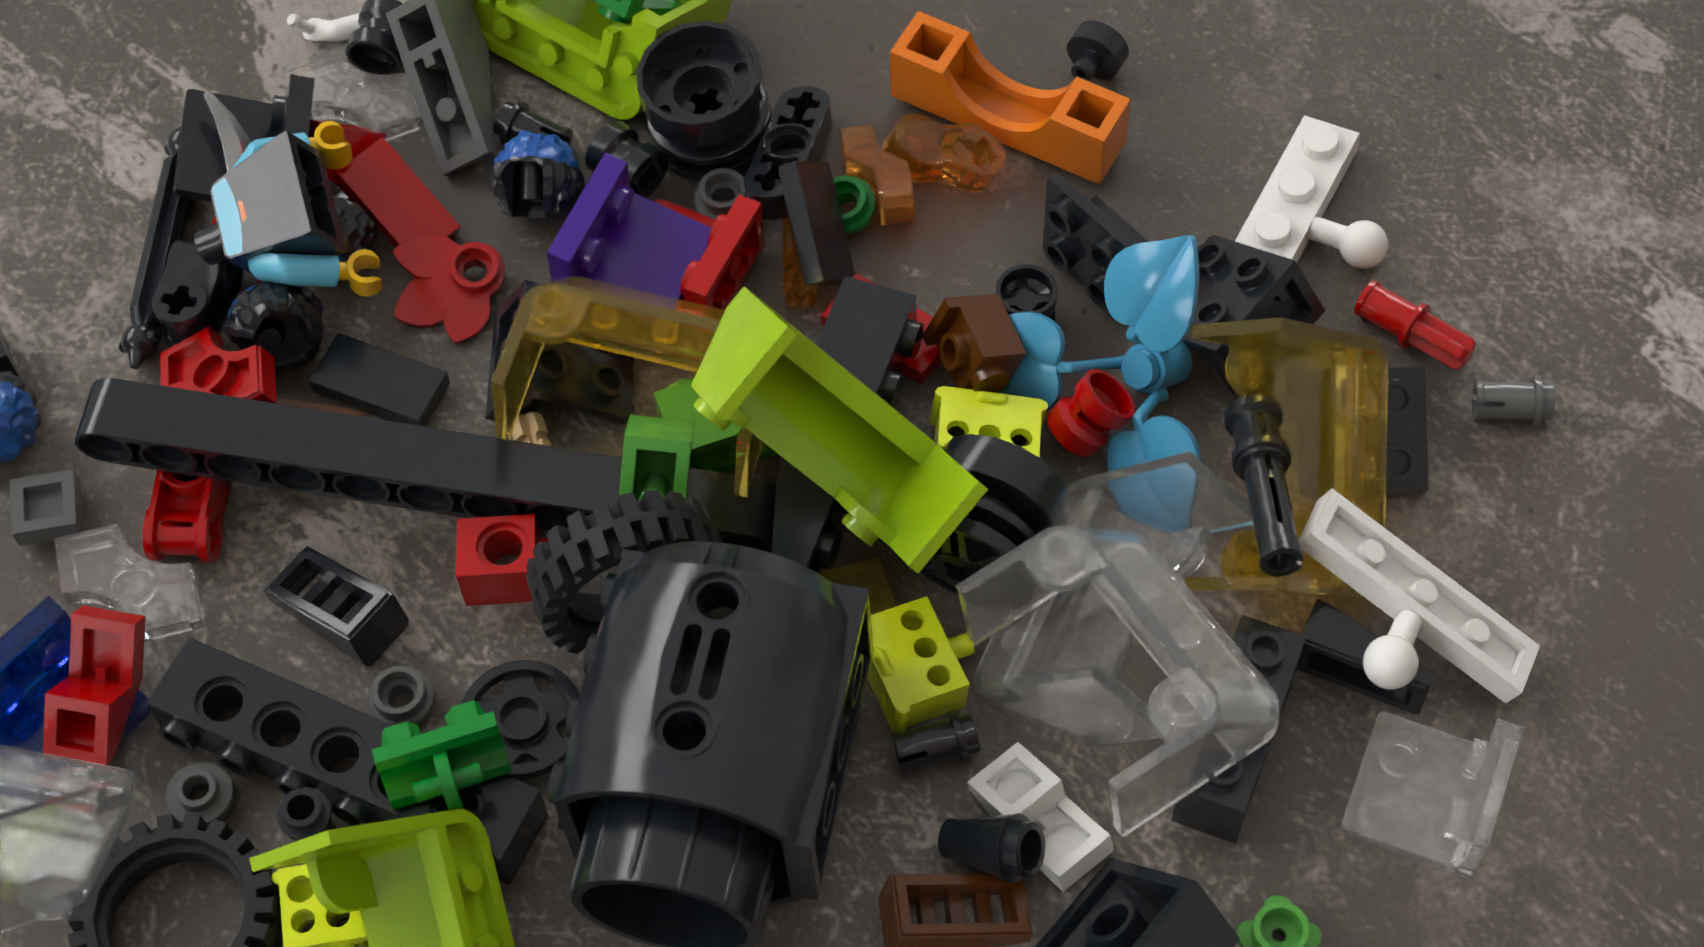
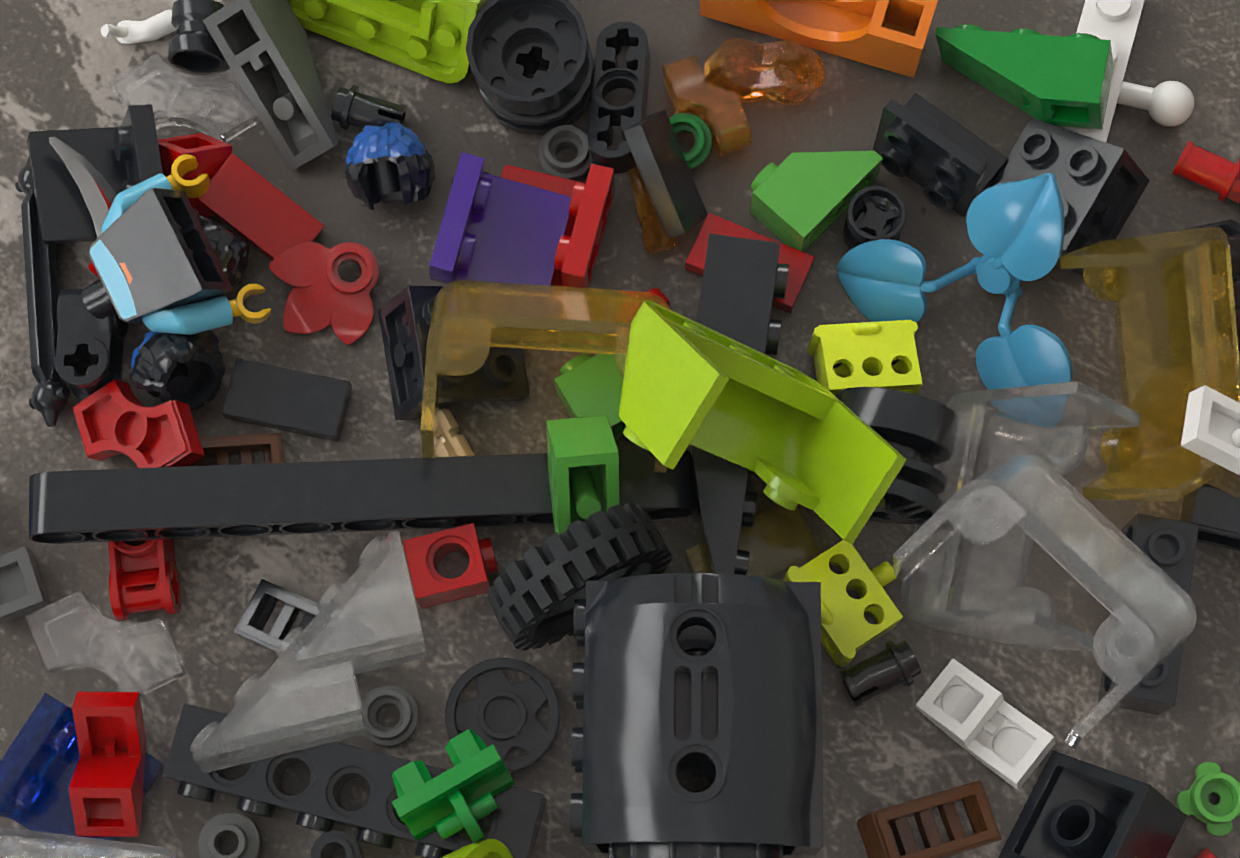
camera: 10 degrees left, 15 degrees up
(325, 631) = (313, 686): none -> clear slope
(645, 161) = (466, 130): black wheel -> none
(964, 261) = (810, 192): none -> bright green slope
(976, 341) = (842, 276): reddish brown brick -> none
(997, 845) = (957, 766): black cone -> none
(1095, 409) = (963, 320): red wheel -> none
(1223, 187) = (1042, 75): none -> green slope
(1262, 462) = (1135, 367): black pin -> none

